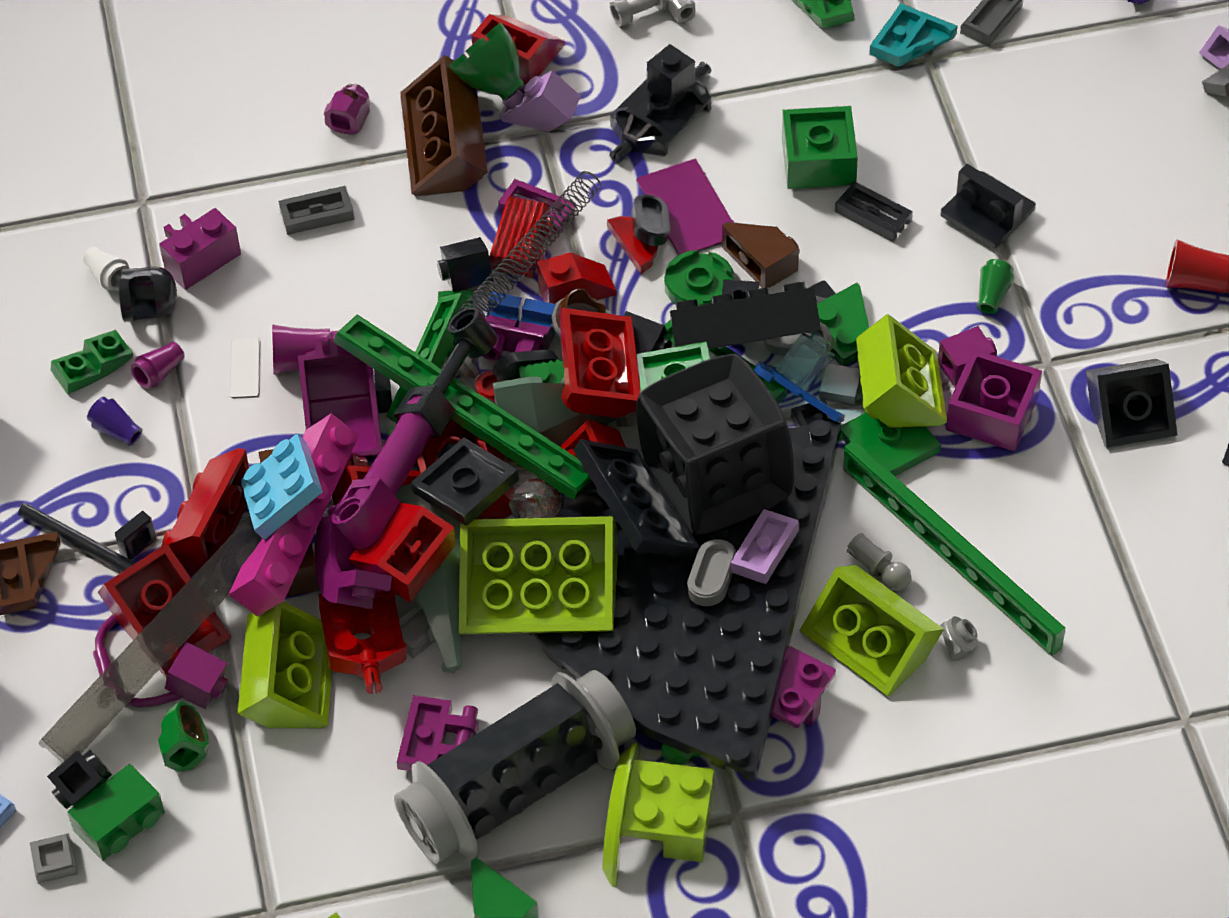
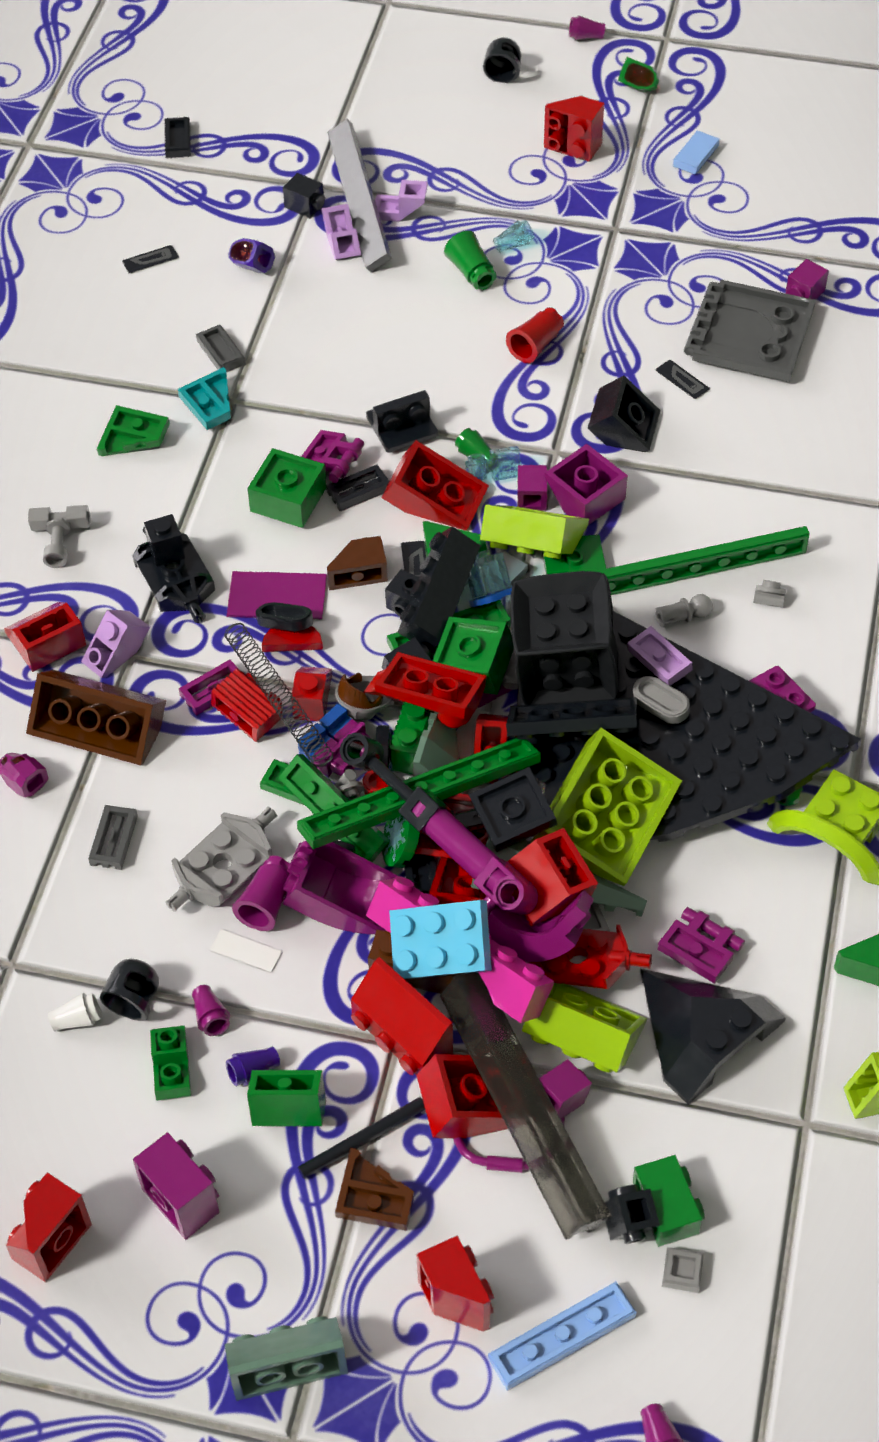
camera: 65 degrees left, 0 degrees up
(83, 458) = (286, 1098): none -> green brick
(135, 535) = (388, 1088): black tile -> none
(183, 738) = (615, 1123): green rock -> none
(199, 247) = (102, 933): magenta brick -> none
(304, 291) = (235, 840): none -> light grey plate
(342, 774) = (701, 1027): none -> black wedge
(465, 264) = (251, 749): black brick -> none
(491, 64) = (70, 645): green piece -> none
(514, 764) = (794, 952): black brick -> none
(696, 277) = (355, 615): green tile -> none
(870, 628) = (744, 634): lime slope -> none
(900, 158) = (328, 446): none -> magenta plate
(908, 270) = (434, 488): none -> red slope
(980, 309) = (502, 464): none -> clear light blue plate

